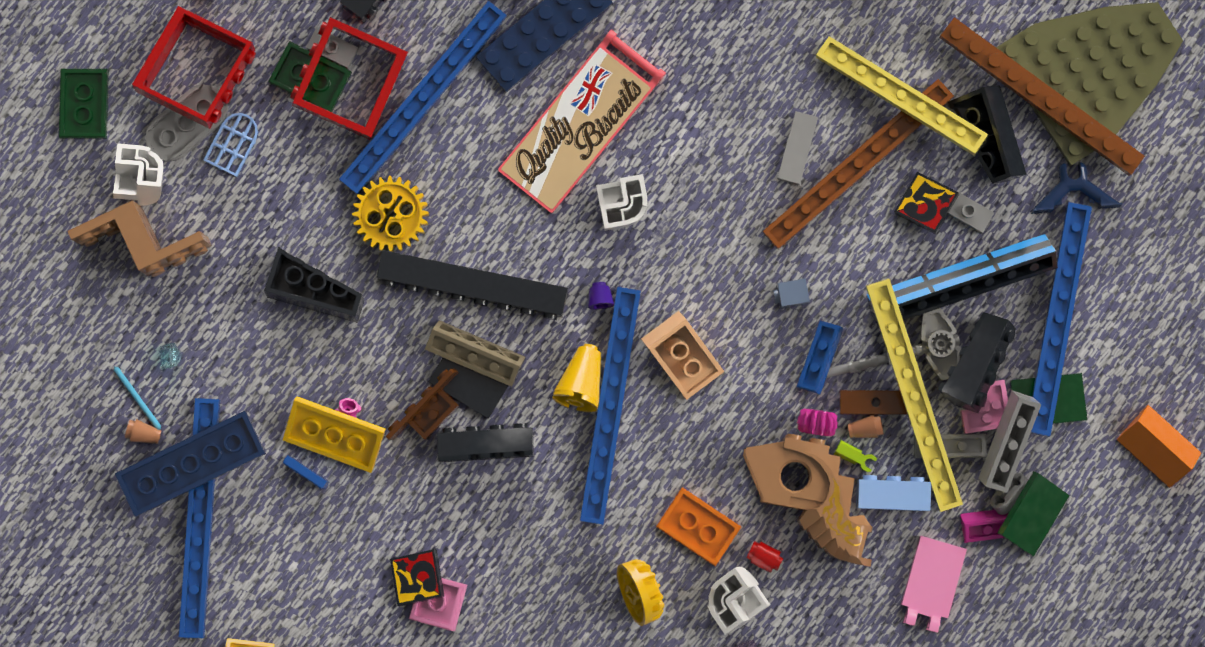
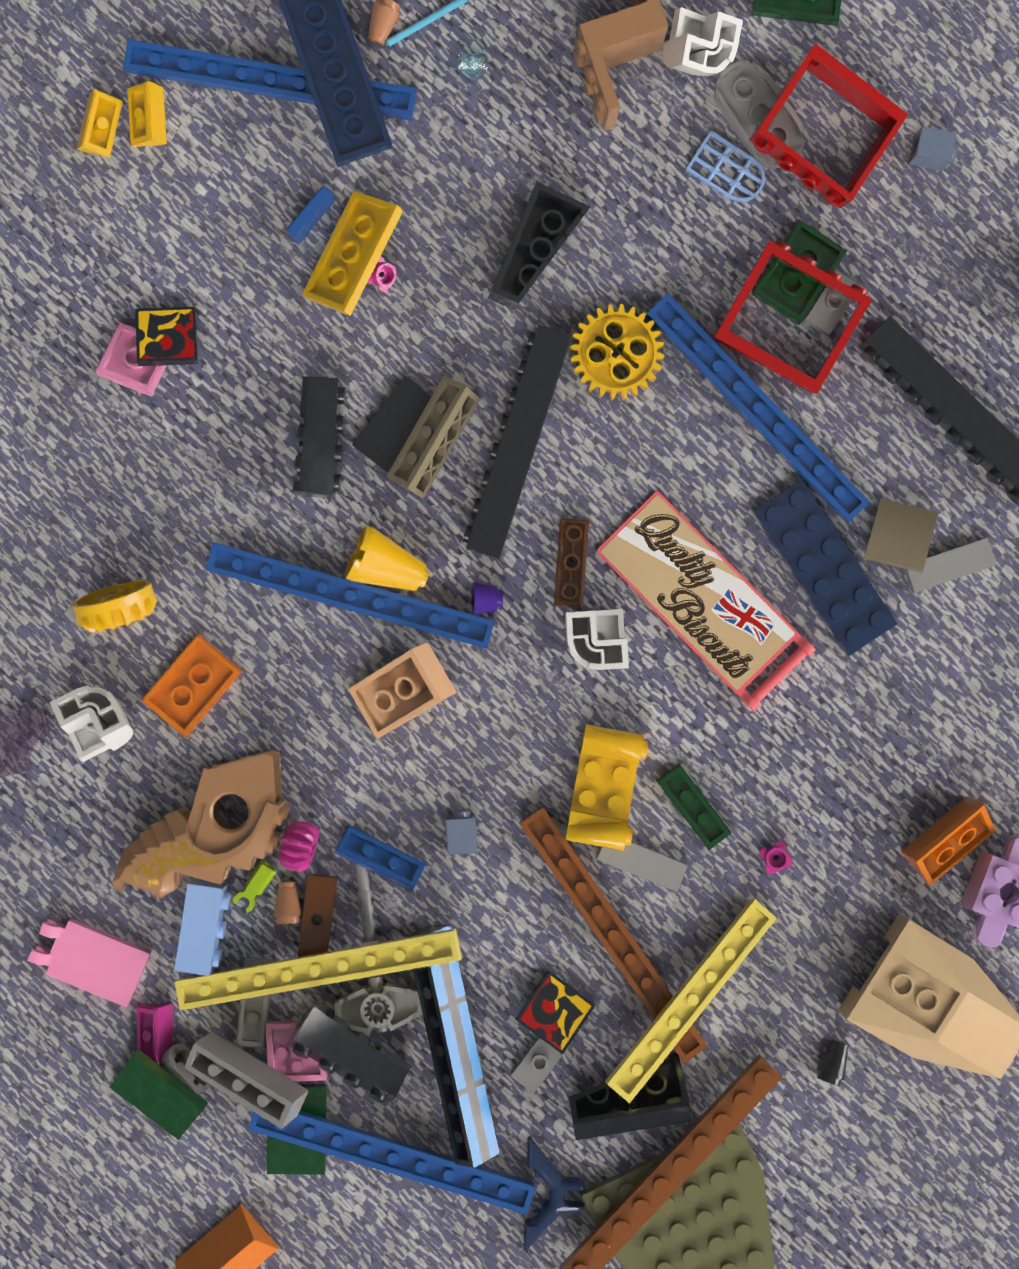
camera: 90 degrees right, 5 degrees up
(237, 617) = (146, 115): none -> yellow slope
(429, 411) = (366, 373): reddish brown bracket -> none
(548, 233) = (571, 581): none -> reddish brown tile
(740, 183) = (605, 787): none -> yellow piece
(748, 111) = (693, 806): none -> dark green tile
(765, 556) = (145, 761): red brick -> none
(783, 36) = (781, 863): none -> dark pink plate

